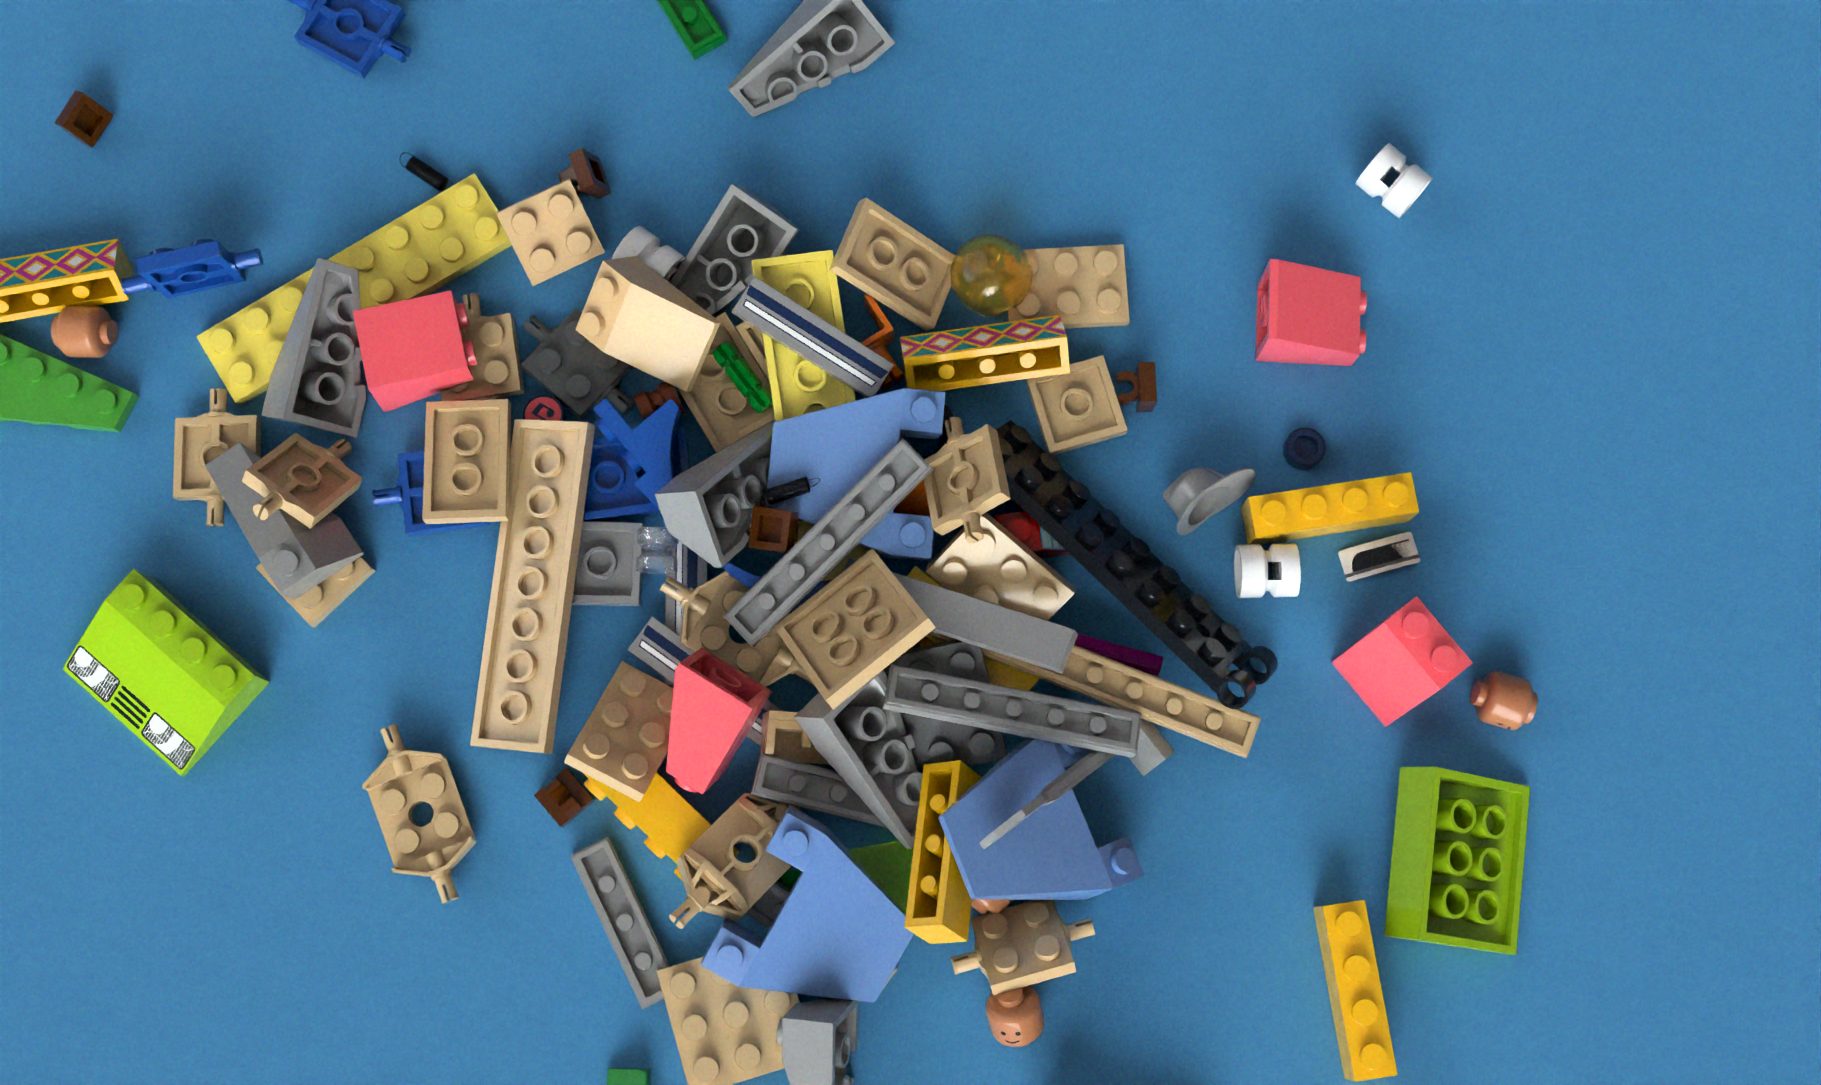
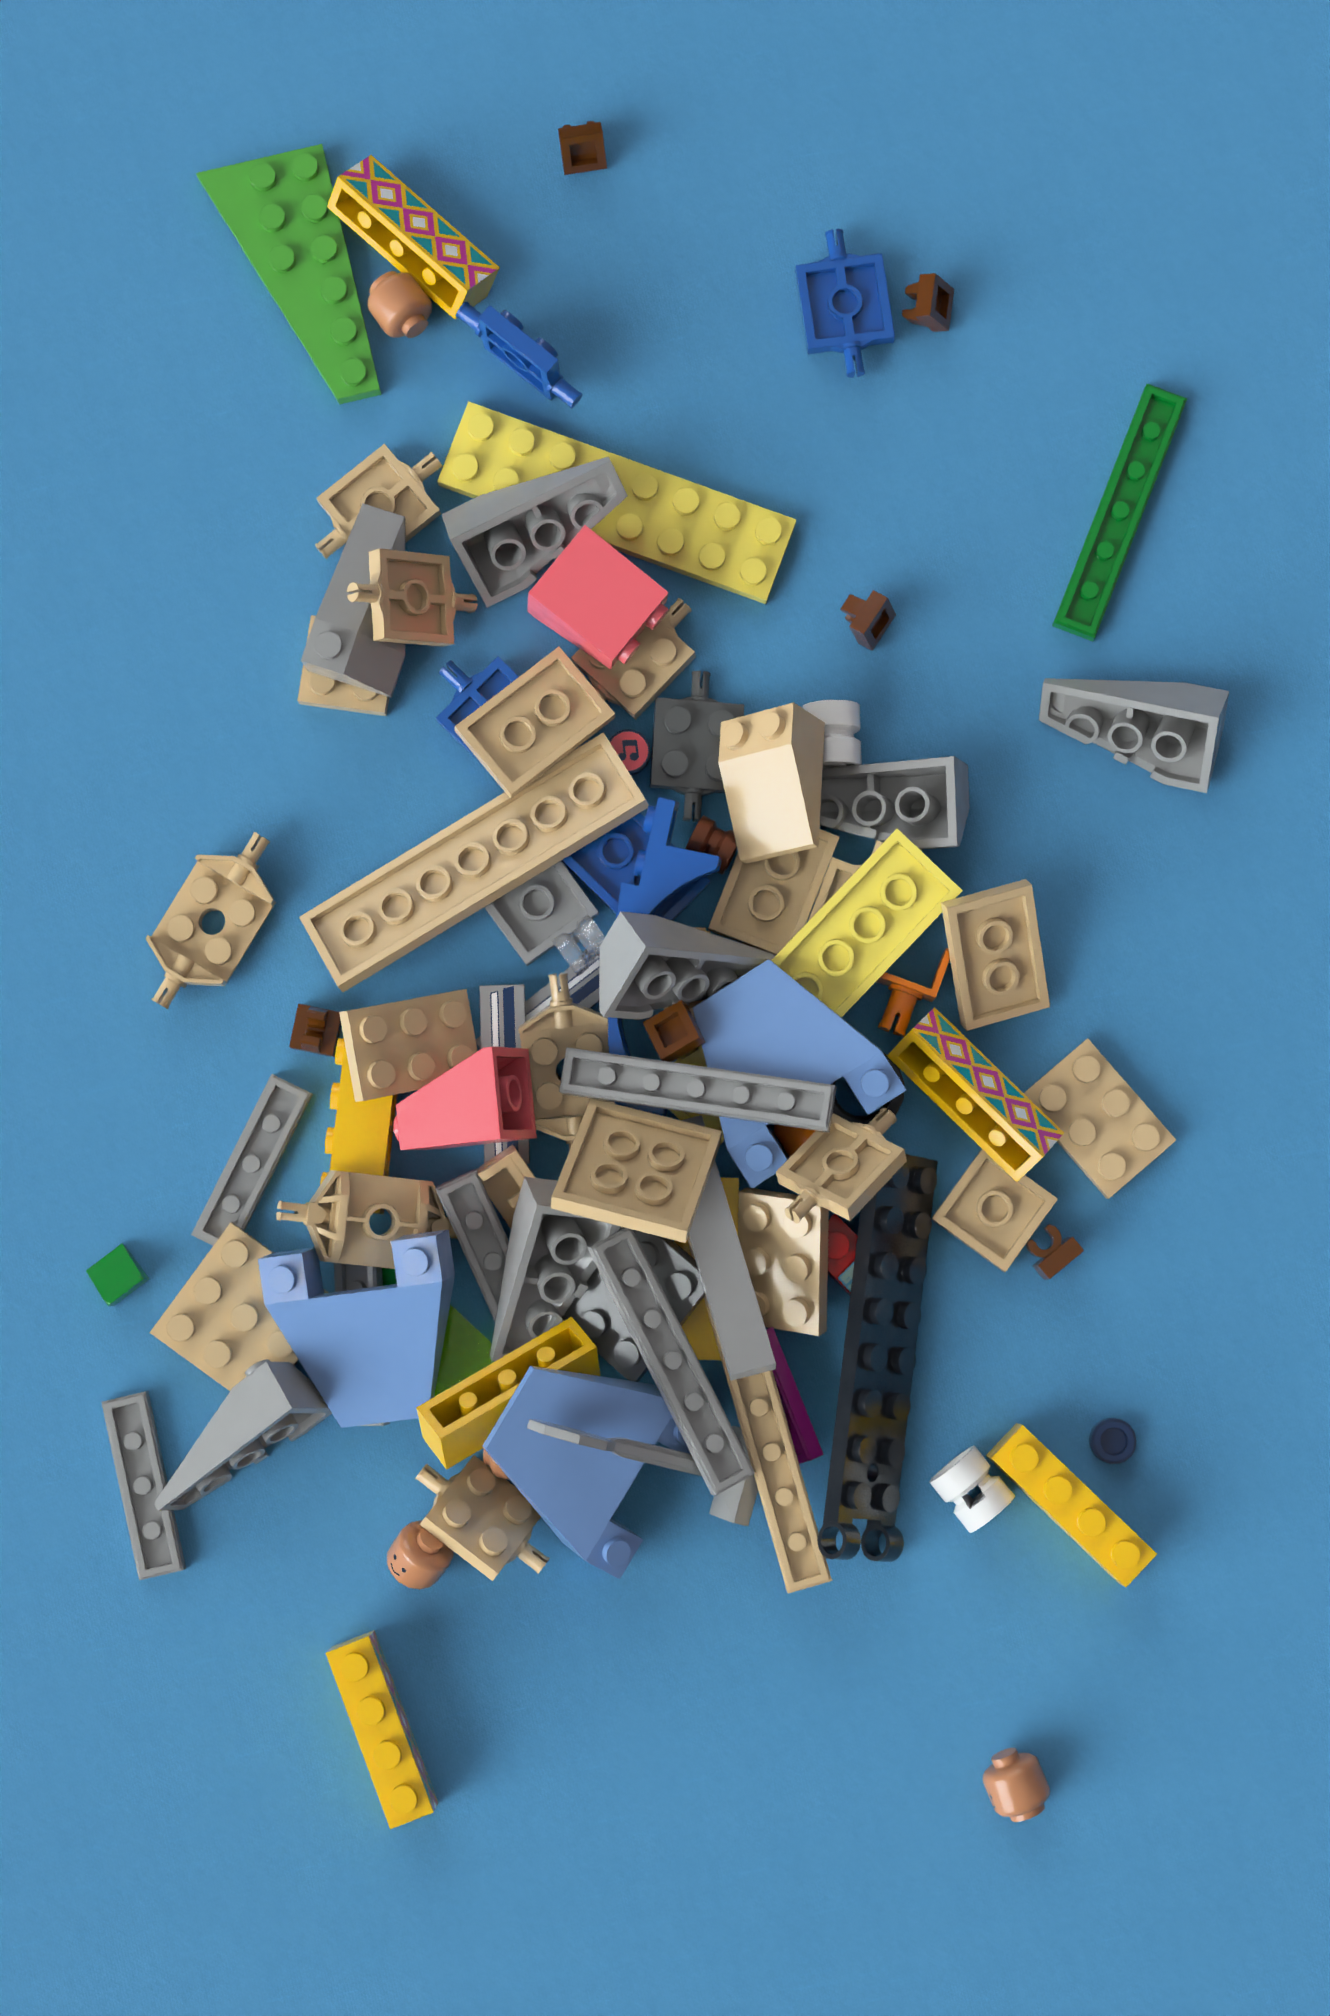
camera: 55 degrees right, 5 degrees up
(162, 671) = (167, 610): lime slope -> none
(426, 173) = (764, 477): black piece -> none
(550, 232) = (793, 629): tan plate -> none
(743, 377) = (791, 899): green axle -> none
(787, 490) = (717, 1018): black piece -> none
(812, 338) = (868, 935): light grey tile -> none
(991, 274) = (1054, 1044): clear yellow cylinder -> none
(1204, 493) = (998, 1379): light grey piece -> none
(1309, 315) = (1236, 1357): coral slope -> none
(1355, 991) = (659, 1834): yellow brick -> none
(1378, 556) = (1065, 1579): sticker -> none
(1402, 662) = (977, 1668): coral slope -> none
(1457, 860) = (841, 1844): lime slope -> none

